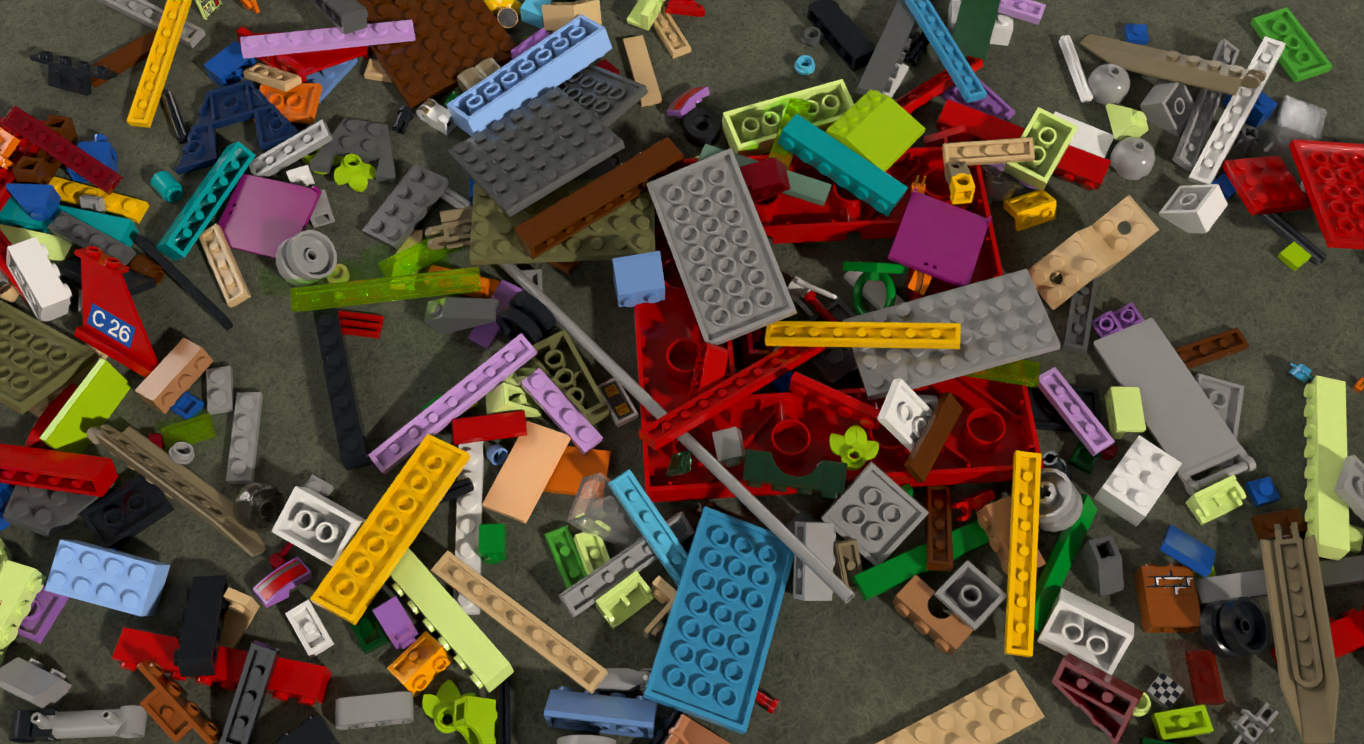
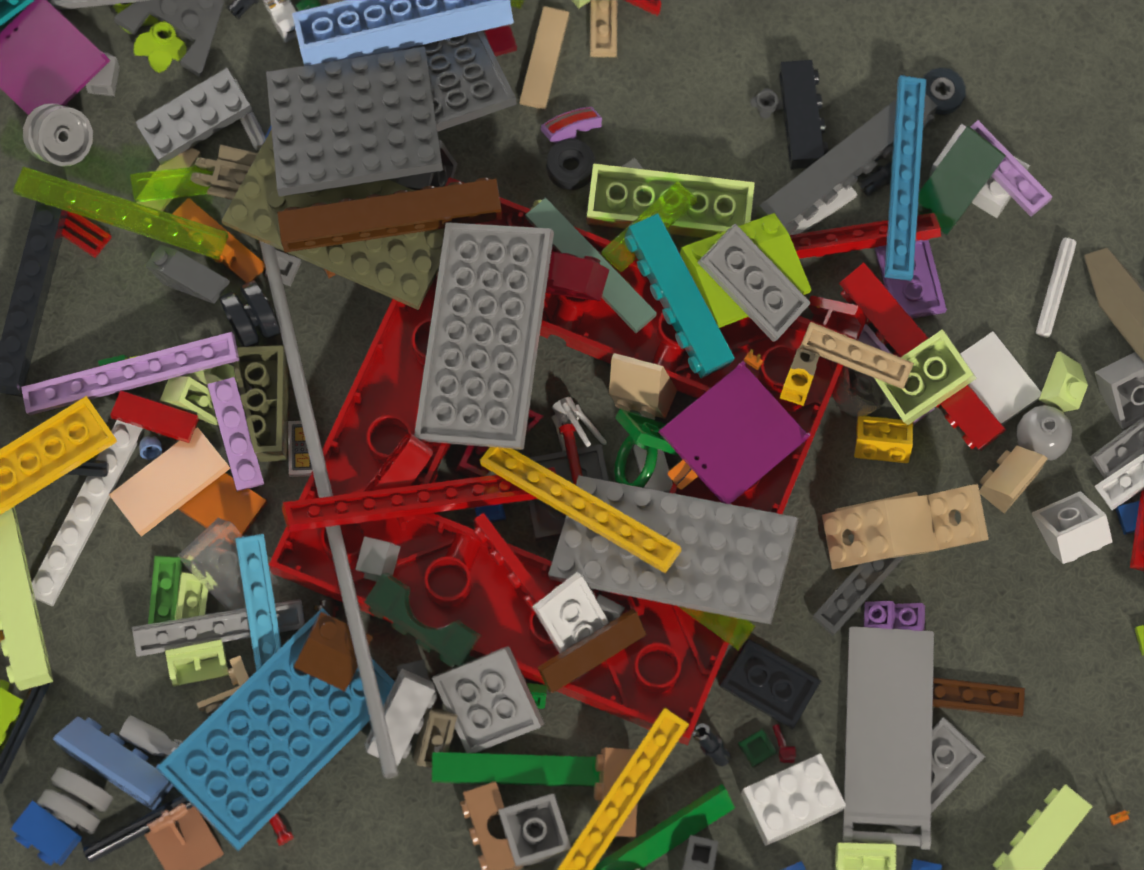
camera: 25 degrees right, 10 degrees up
(300, 176) = (99, 27): white plate -> none
(339, 274) = (89, 165): tile -> none
(486, 334) = (238, 275): medium lavender tile -> none
(492, 543) = (98, 541): green brick -> none
(520, 622) = (80, 635): tan plate -> none
(638, 279) = (379, 332): medium blue slope -> none
(679, 464) = (315, 554): clear green slope -> none
(732, 534) = (329, 652): none -> reddish brown slope
(805, 65) = (739, 130): medium azure plate -> none
(845, 242) = (640, 386): none -> tan slope
(853, 444) = (507, 618): lime plate -> none
(889, 133) = (754, 282): none -> light grey tile
(938, 528) = (551, 746): reddish brown tile -> none
(976, 500) = (606, 736): red plate -> none
(1059, 501) = (685, 778): light grey wheel -> none
(1074, 412) = (772, 693): lavender plate -> none
(1109, 84) = (1080, 326): light grey cylinder -> none
(1124, 411) = (830, 720): yellowish green panel -> none
(1139, 184) = (1012, 476): none -> tan slope
(1301, 372) = (1057, 772): dark azure plate -> none

